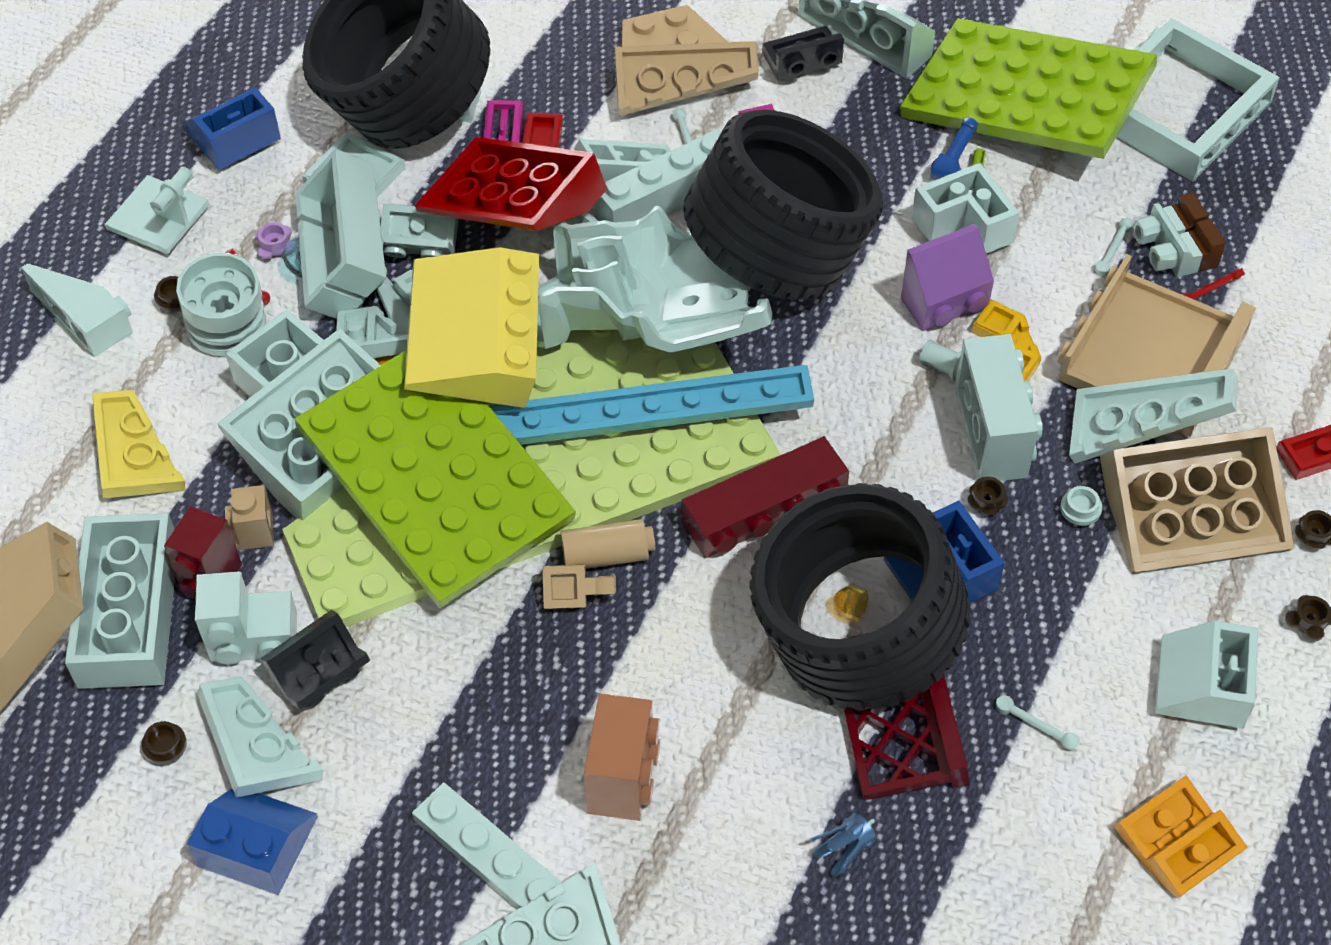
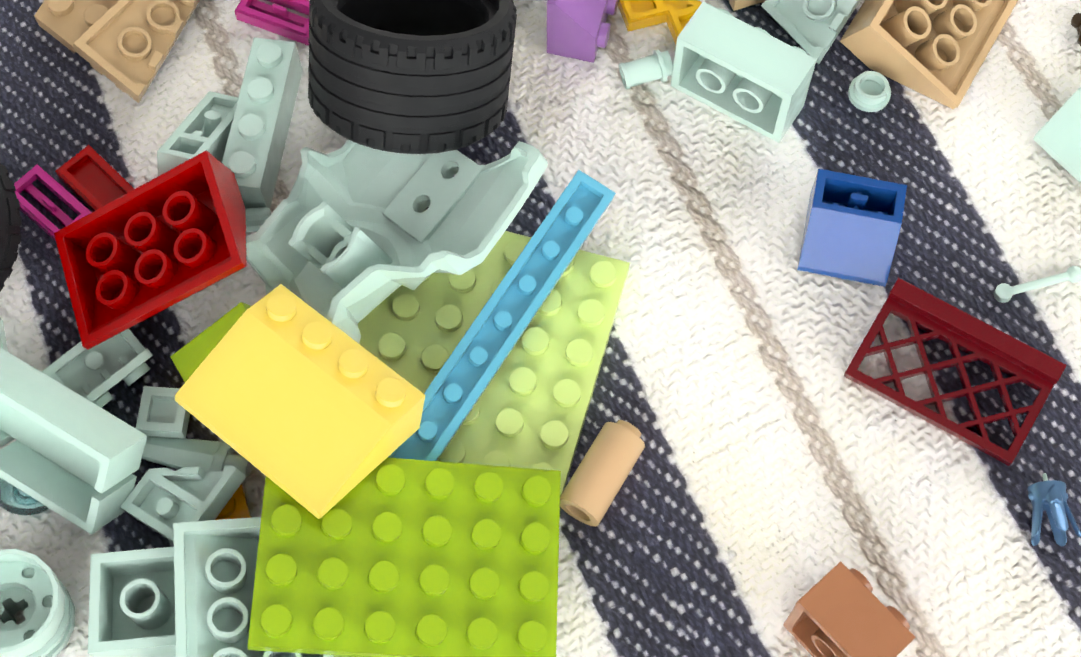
camera: 50 degrees left, 10 degrees up
(567, 586) = (619, 533): tan plate -> none
(679, 115) = (187, 57): light aqua hinge -> none
(758, 497) = (664, 309): dark red brick -> none
(838, 530) = (881, 225): black tyre -> none
(851, 602) = (821, 326): clear yellow hinge -> none
(991, 488) = (807, 138): dark brown plate -> none

